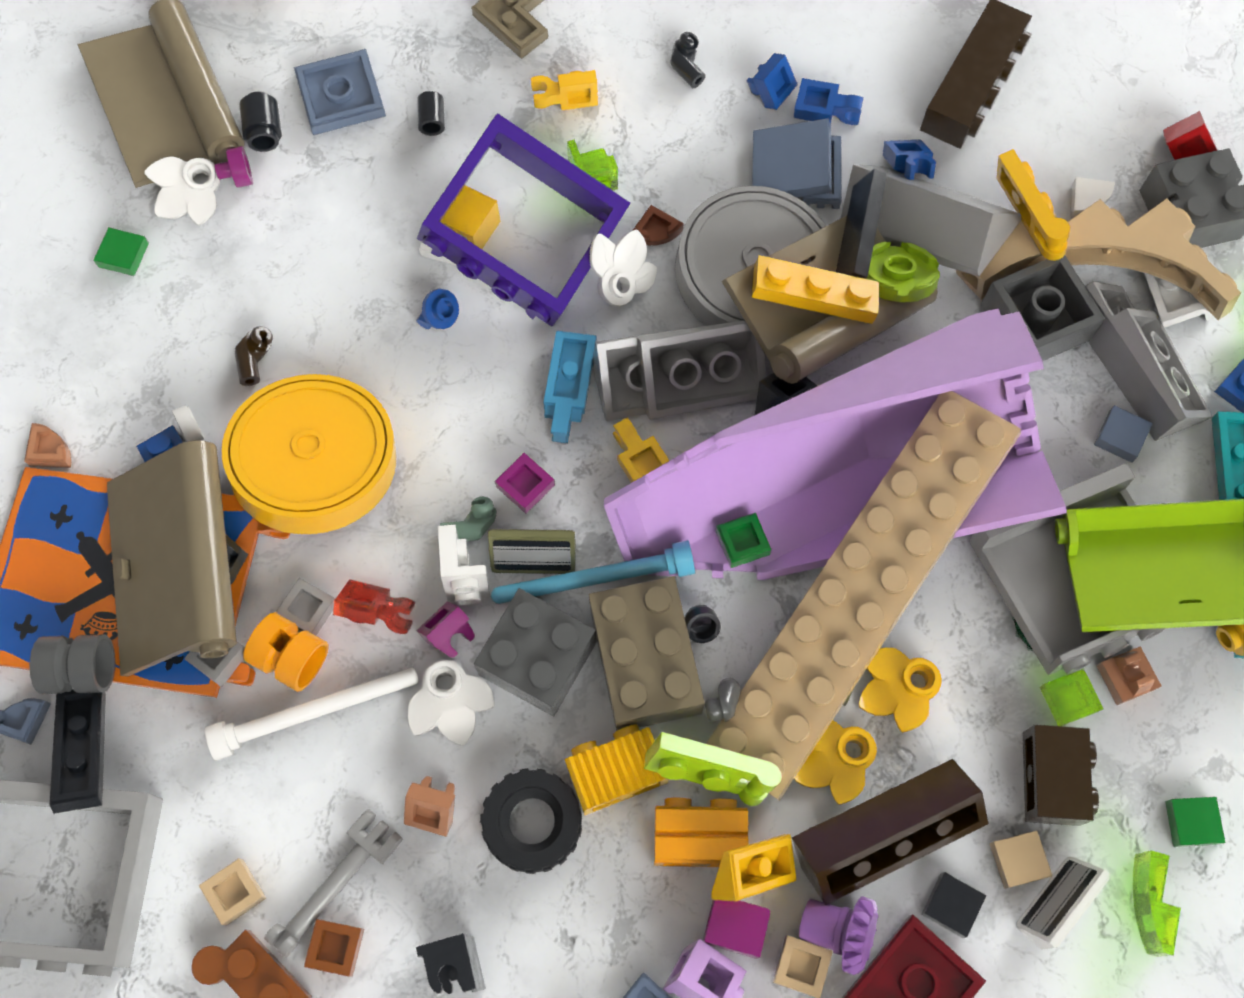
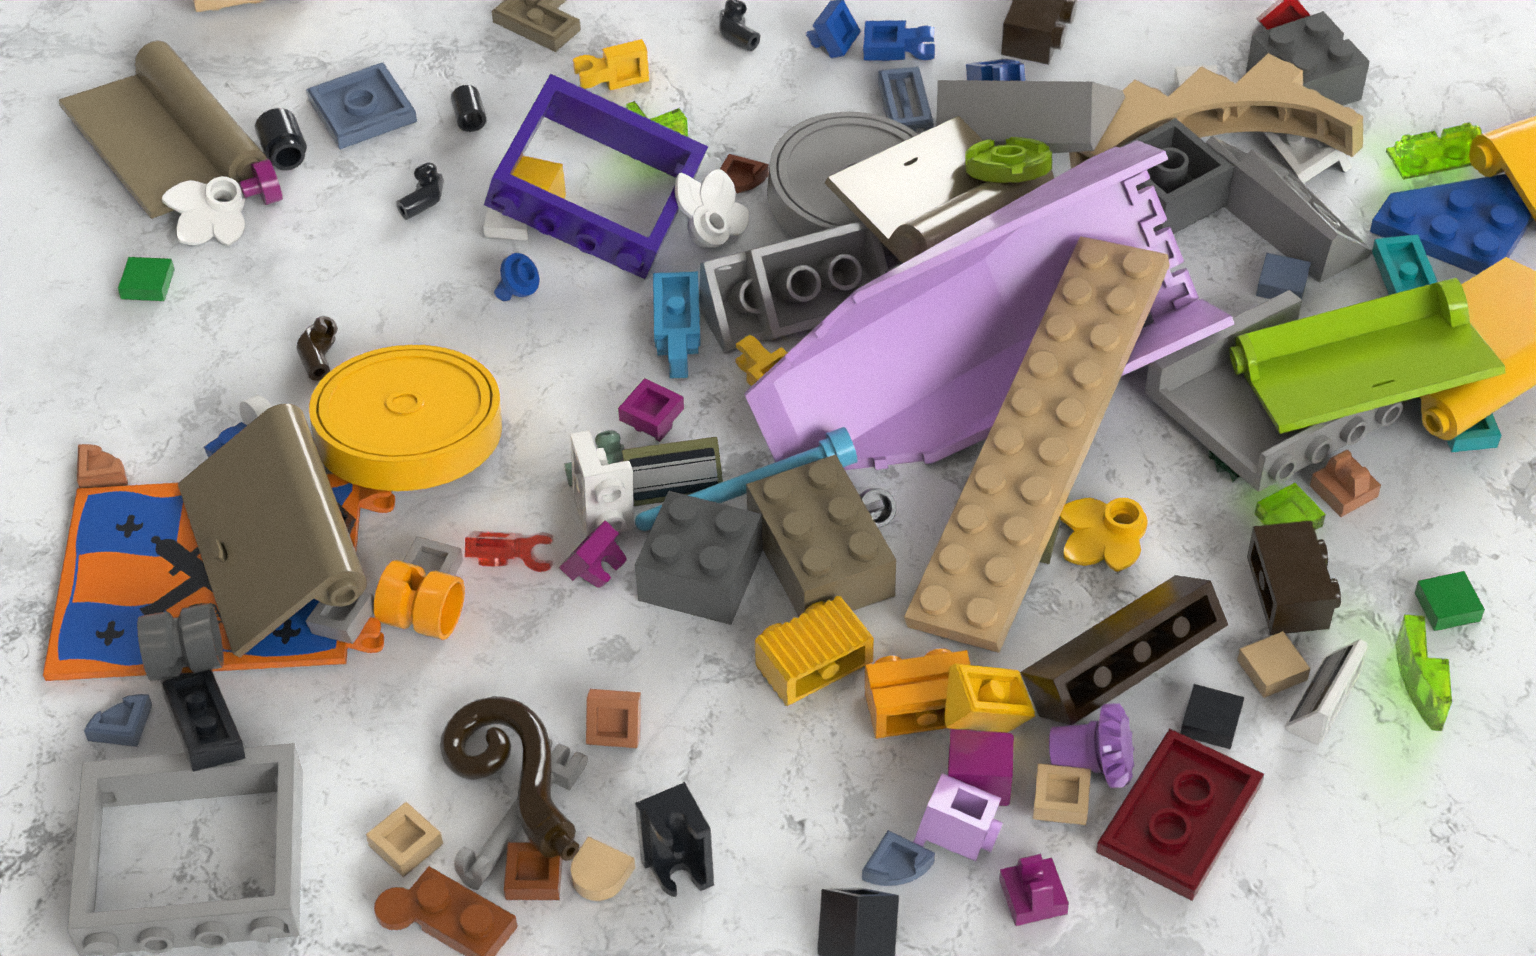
camera: 10 degrees left, 20 degrees down
(225, 738) = (367, 694): white piece -> none
(343, 903) = (539, 817): none -> dark brown plant
(378, 200) = (427, 191): none -> black arm
(389, 959) = (600, 870): none -> tan tile
(451, 708) = (612, 630): white plate -> none
(497, 812) = (736, 748): black tyre -> none
(712, 767) = (917, 613): lime plate -> none
(726, 704) = (916, 564): dark grey arm -> none
(743, 540) = (901, 426): green tile -> none
(794, 158) = (875, 86): sand blue tile -> none
(815, 289) = (925, 175): yellow plate -> none
(834, 767) = (1049, 611): yellow plate -> none
(861, 225) = (959, 129): black tile -> none
(1035, 207) = (1140, 86): yellow plate -> none

